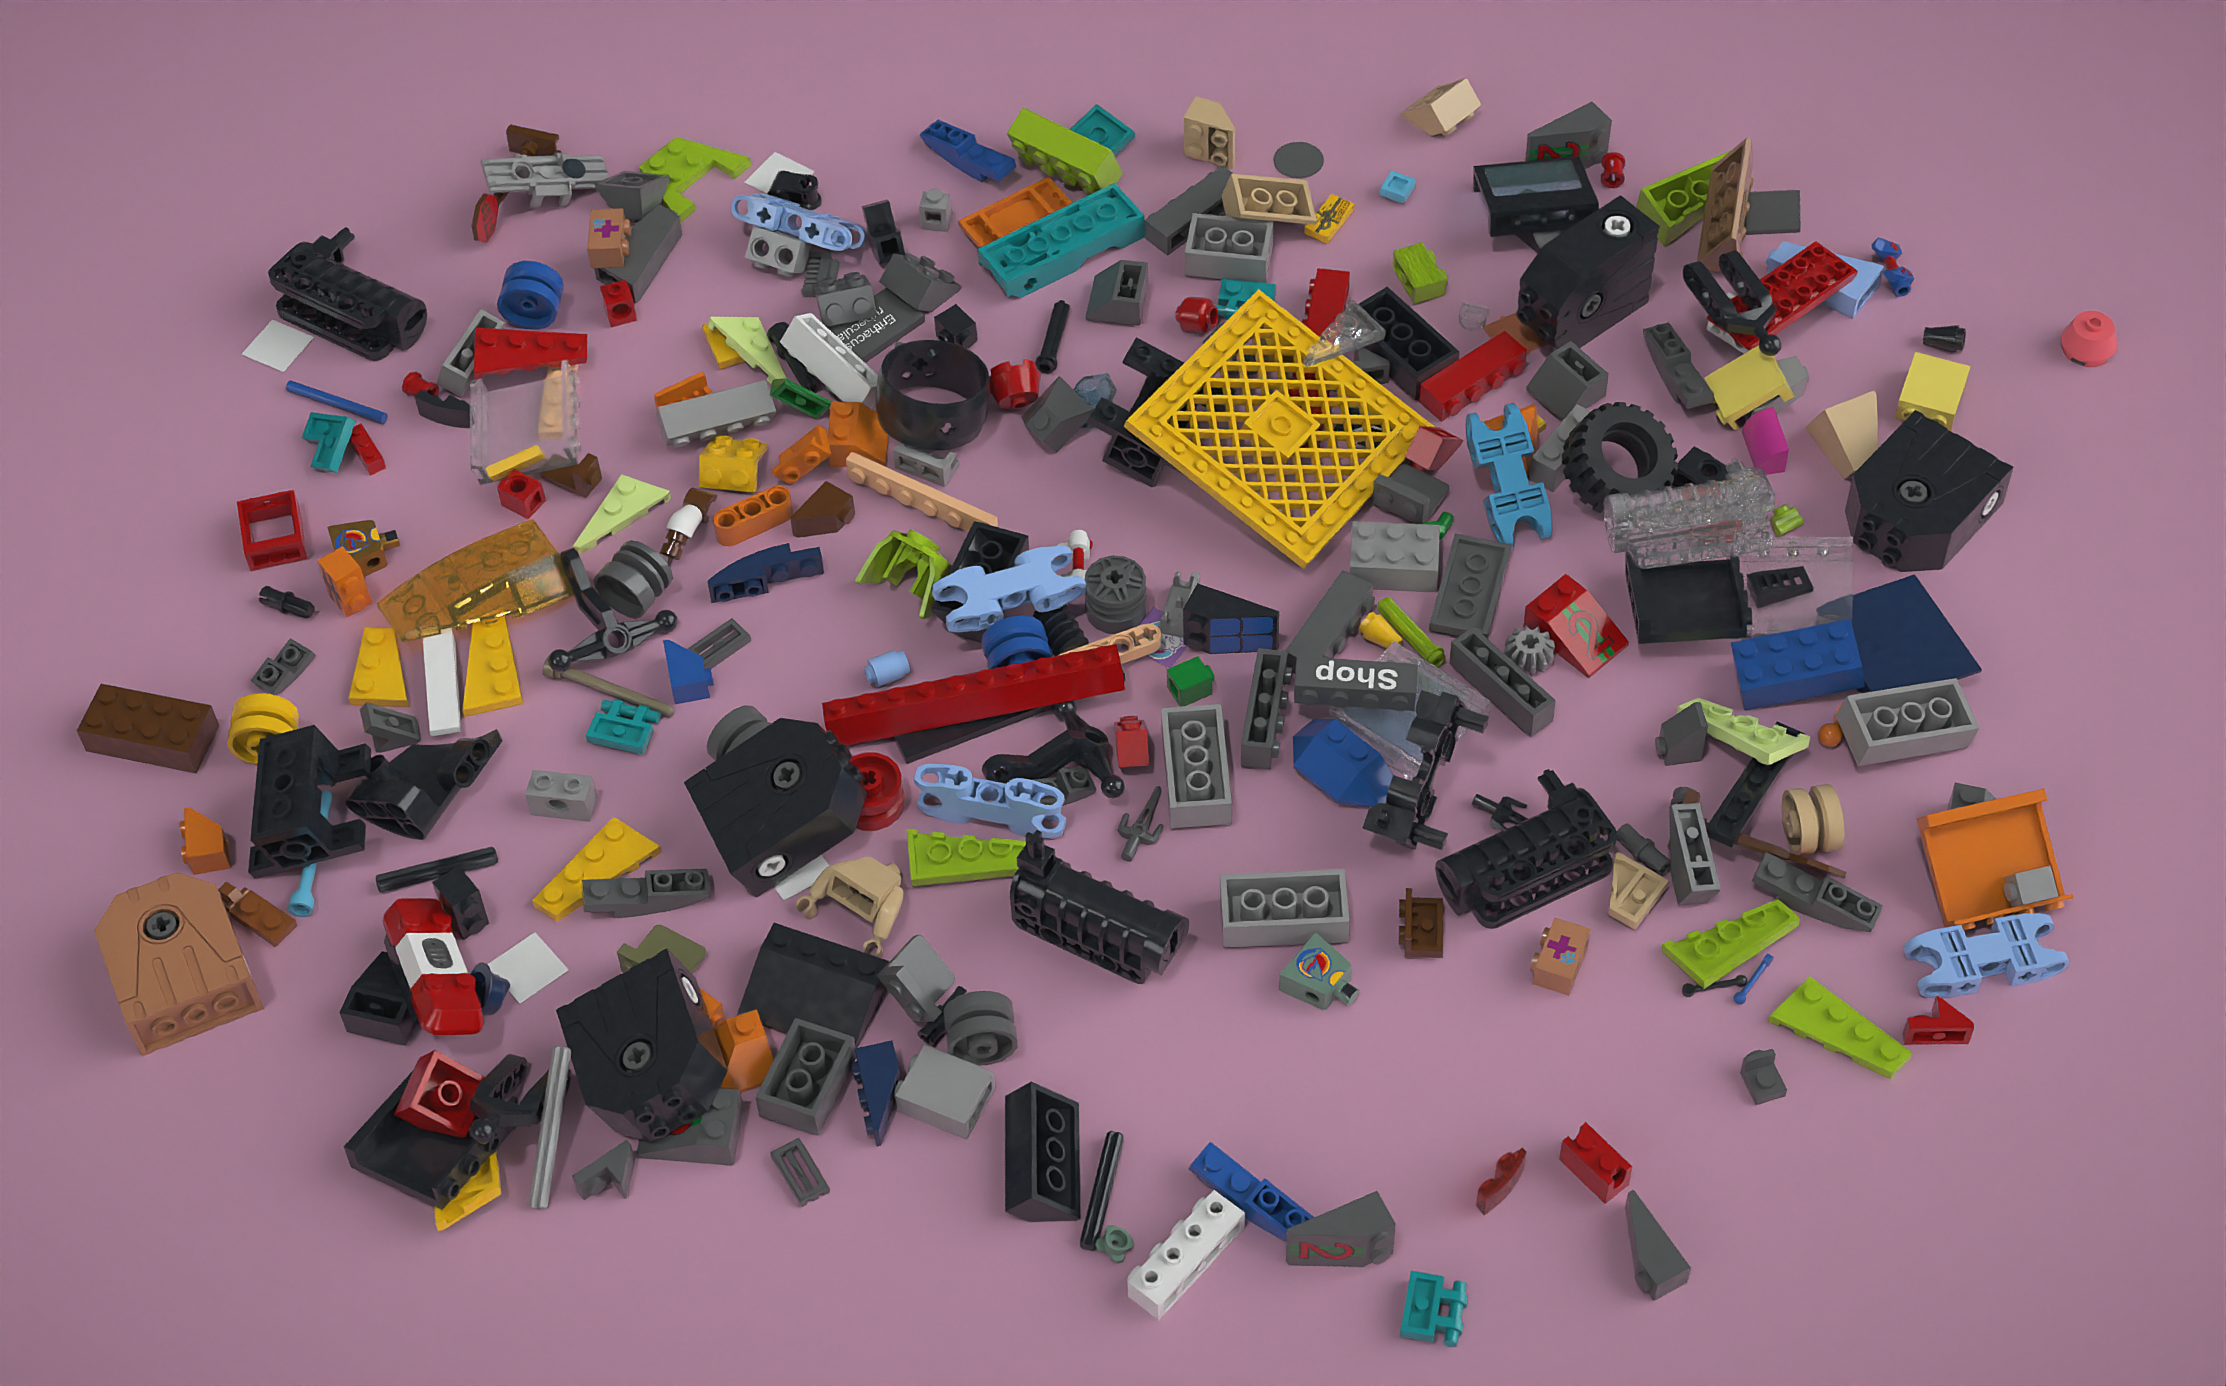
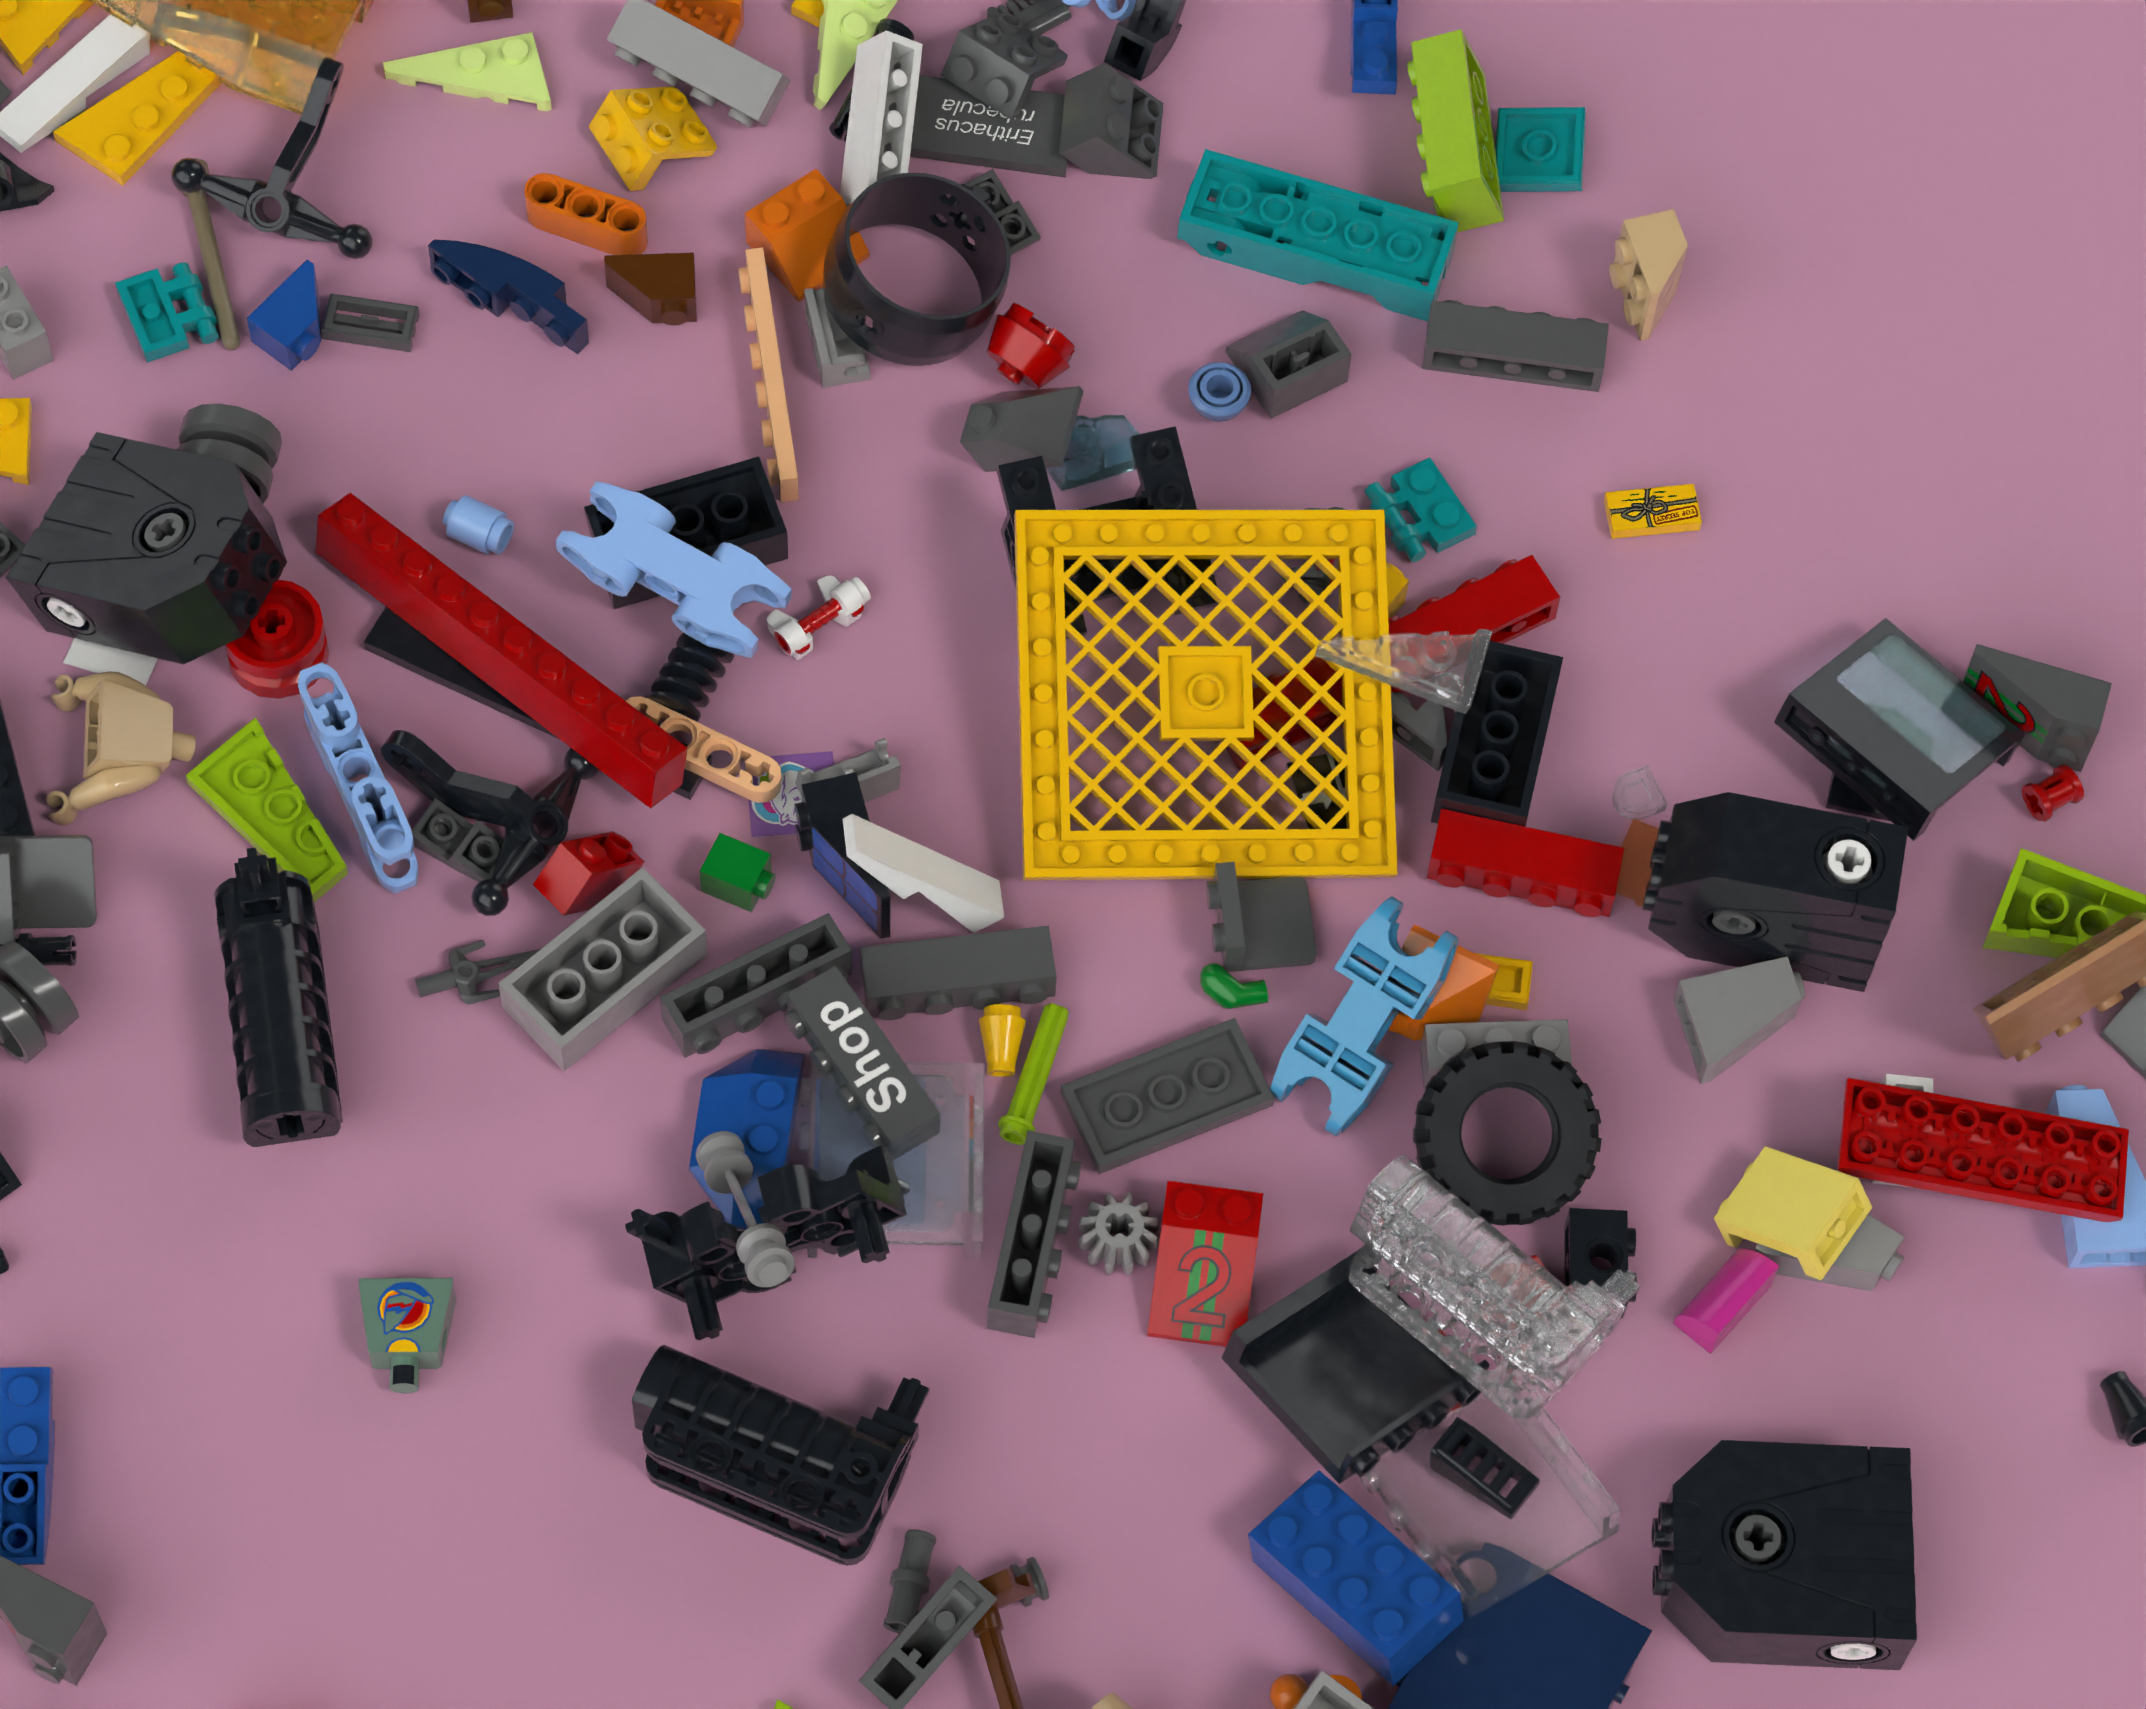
camera: 45 degrees right, 10 degrees up
(633, 579) = (370, 161): dark grey wheel -> none
(685, 521) = (504, 151): reddish brown piece -> none
(799, 397) = (800, 128): green slope -> none
(803, 456) = (713, 200): orange bracket -> none
(901, 553) = (648, 417): lime piece -> none
(935, 203) = (1247, 53): light grey brick -> none
(955, 327) = (1069, 219): black brick -> none
(1014, 212) = (1320, 148): orange slope -> none
(1015, 641) = (609, 642): blue wheel -> none
(1046, 361) = (1162, 335): black axle -> none
(1111, 330) = (1219, 391): none -> medium blue brick
(1115, 594) = (792, 694): dark grey wheel -> none
(1197, 315) = (1337, 471): red head -> none
(1228, 248) = (1478, 429): light grey brick -> none
(1268, 199) = (1587, 421): tan slope -> none
(1276, 593) = (912, 868): none -> white slope
(1283, 907) = (467, 1217): light grey brick -> none
(1298, 159) = (1728, 405): dark grey sticker -> none
(1396, 555) = (1134, 971): light grey brick -> none
(1397, 187) = (1778, 553): medium azure plate -> none
(1419, 272) = (1647, 679): lime brick -> none
(1422, 927) = (574, 1393): reddish brown bracket -> none
(1432, 448) = (1353, 889): slope -> none
(1438, 769) = (761, 1245): none -> light grey axle
(1443, 108) = (1969, 513): tan slope -> none
(1501, 812) = (838, 1372): black piece -> none
(1561, 955) = (658, 1589): nougat brick -> none
(1567, 380) = (1610, 984): dark grey slope -> none
(1623, 349) = (1735, 1011): none -> light grey slope
(1633, 890) = (833, 1612): tan wing -> none
(1675, 366) = (1763, 1100): dark grey slope -> none
(1683, 736) = (1120, 1512): dark grey slope -> none
(1721, 308) = (1869, 1141): black piece -> none
(1746, 797) = (1115, 1649): black tile -> none
(1747, 735) = (1187, 1583): yellowish green wing -> none
(1785, 519) = (1617, 1406): lime plate -> none
(1847, 432) = (1828, 1392): tan slope -> none
(1933, 389) = (2007, 1452): light yellow panel -> none

